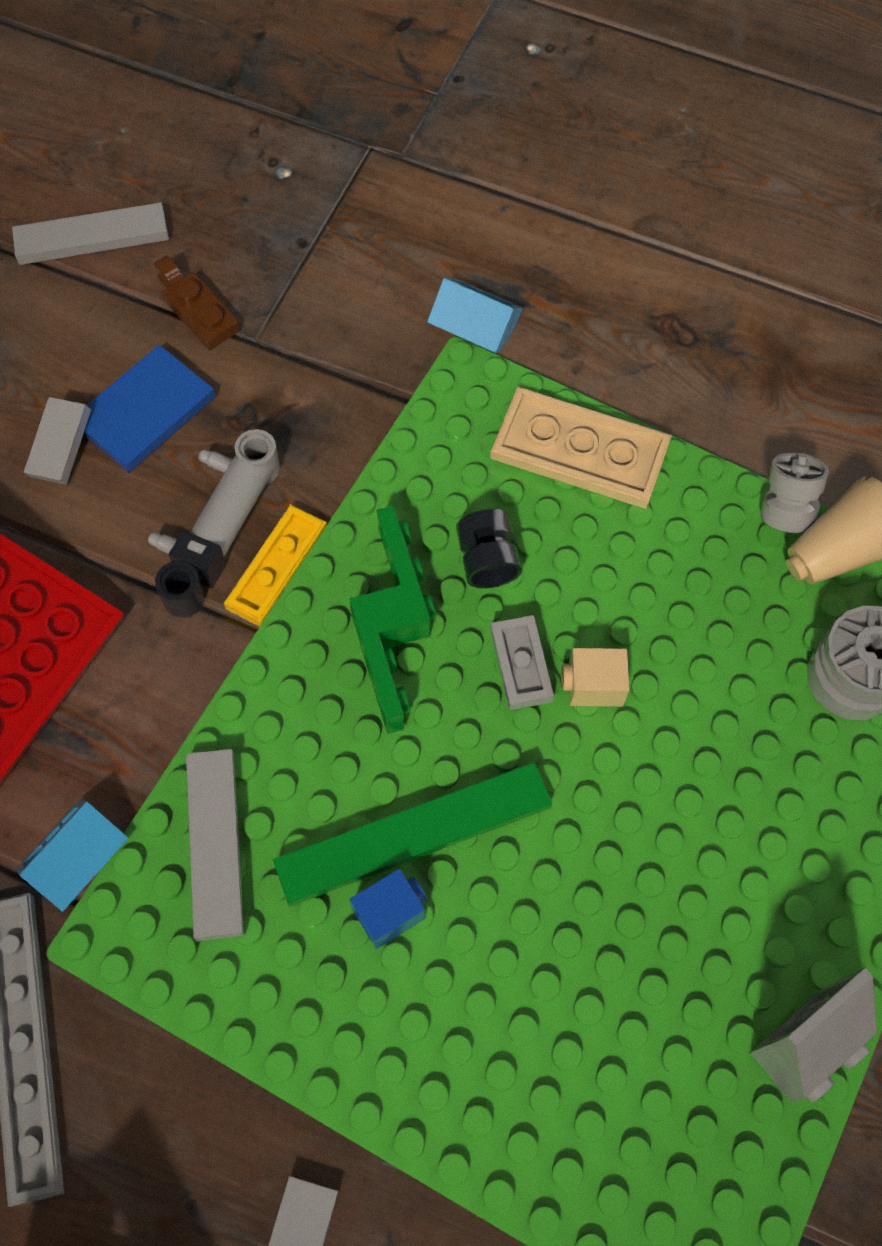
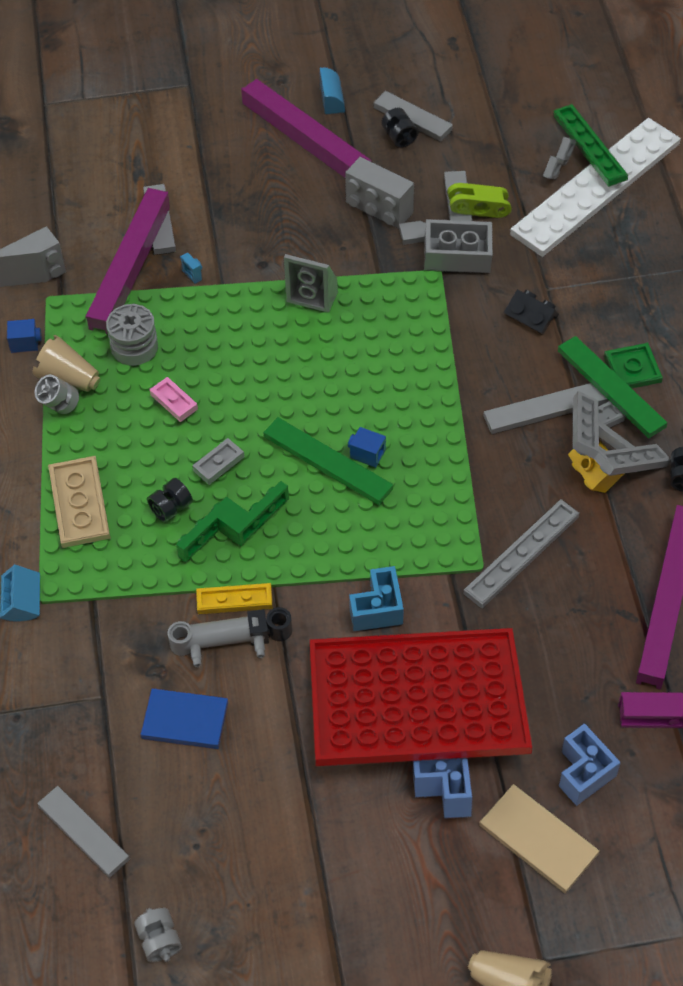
camera: 120 degrees left, 10 degrees down
(57, 441) = (236, 739): light grey tile -> none
(71, 854) = (435, 584): dark azure brick -> none
(88, 737) = (379, 607): none -> dark azure brick
(196, 305) = (99, 738): reddish brown plate -> none
(214, 845) = (388, 529): light grey tile -> none
(596, 677) = (206, 428): tan brick -> none
(691, 665) = (173, 399): none -> bright pink plate

